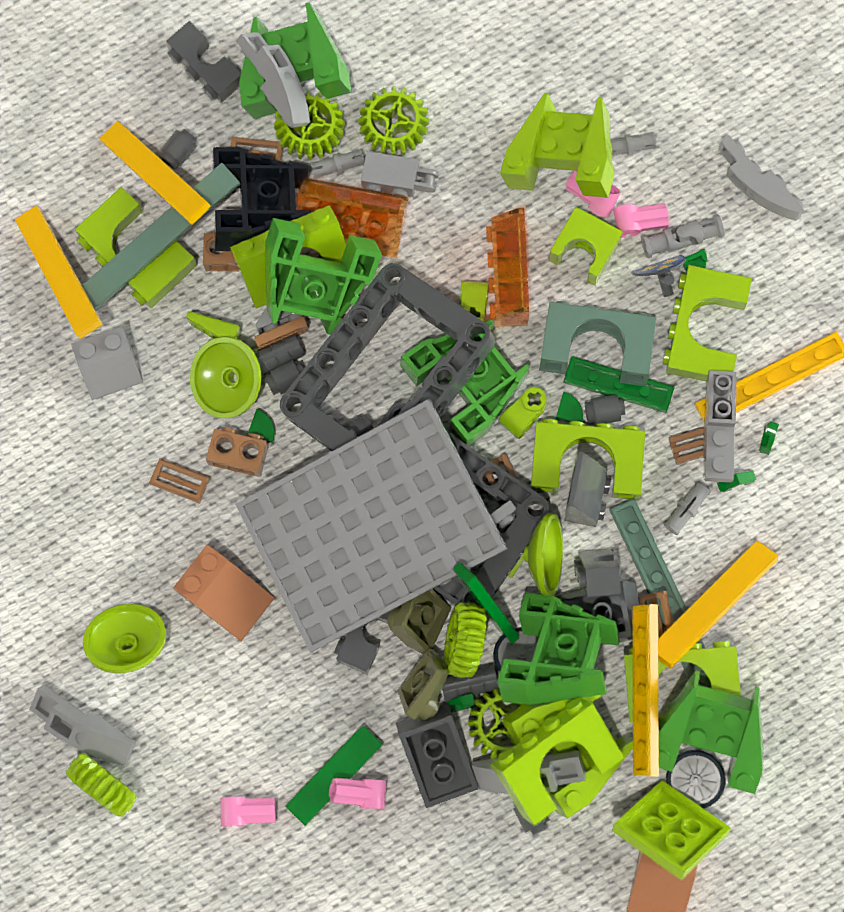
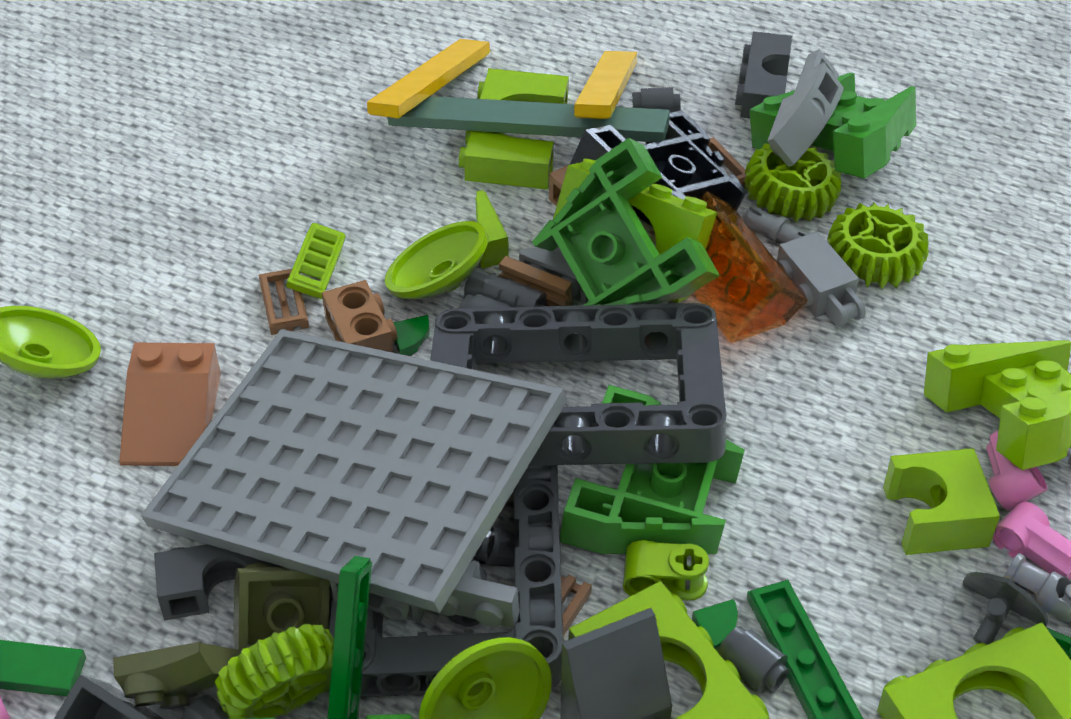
camera: 50 degrees right, 30 degrees down
(107, 363) = (369, 168): light grey slope -> none
(156, 431) = (317, 259): none -> lime slope
(474, 298) = (756, 432): lime piece -> none
(509, 269) = (828, 442): clear orange slope -> none
(630, 330) = (823, 542): sand green arch -> none

